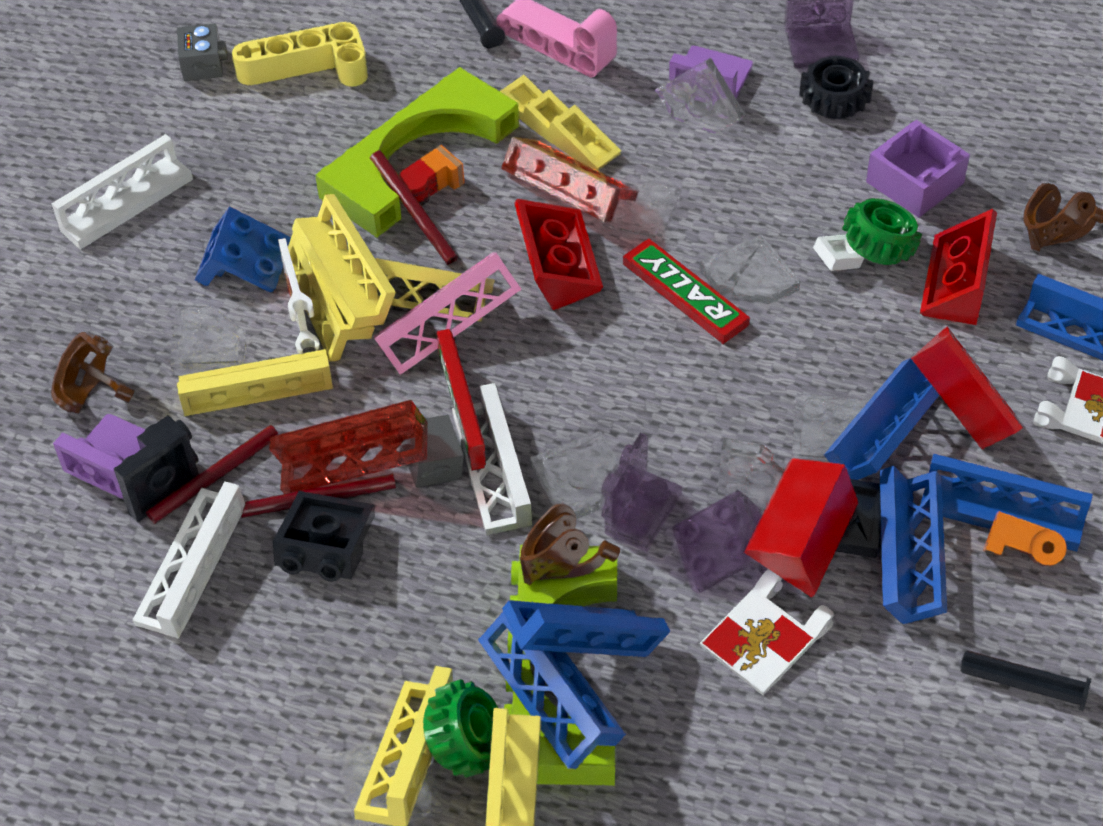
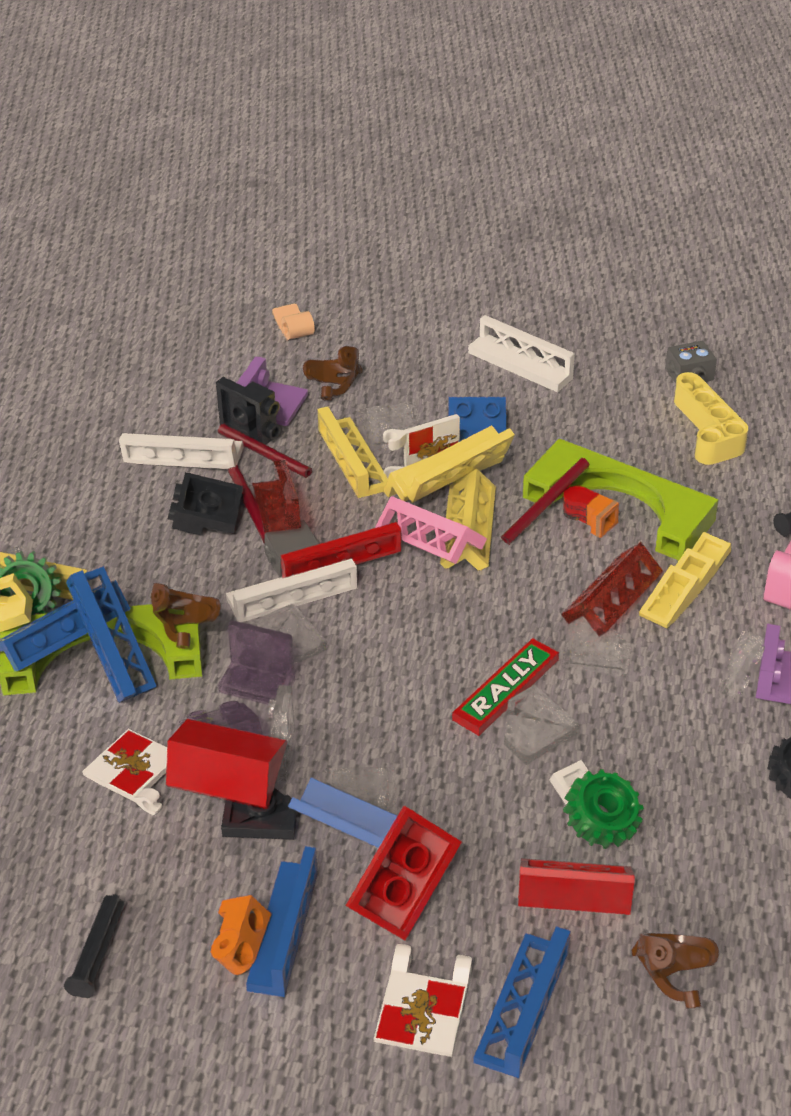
camera: 80 degrees right, 10 degrees down
(558, 252) = (516, 585): red slope -> none
(899, 547) = (228, 847): blue fence -> none
(917, 168) = (706, 836): medium lavender container -> none

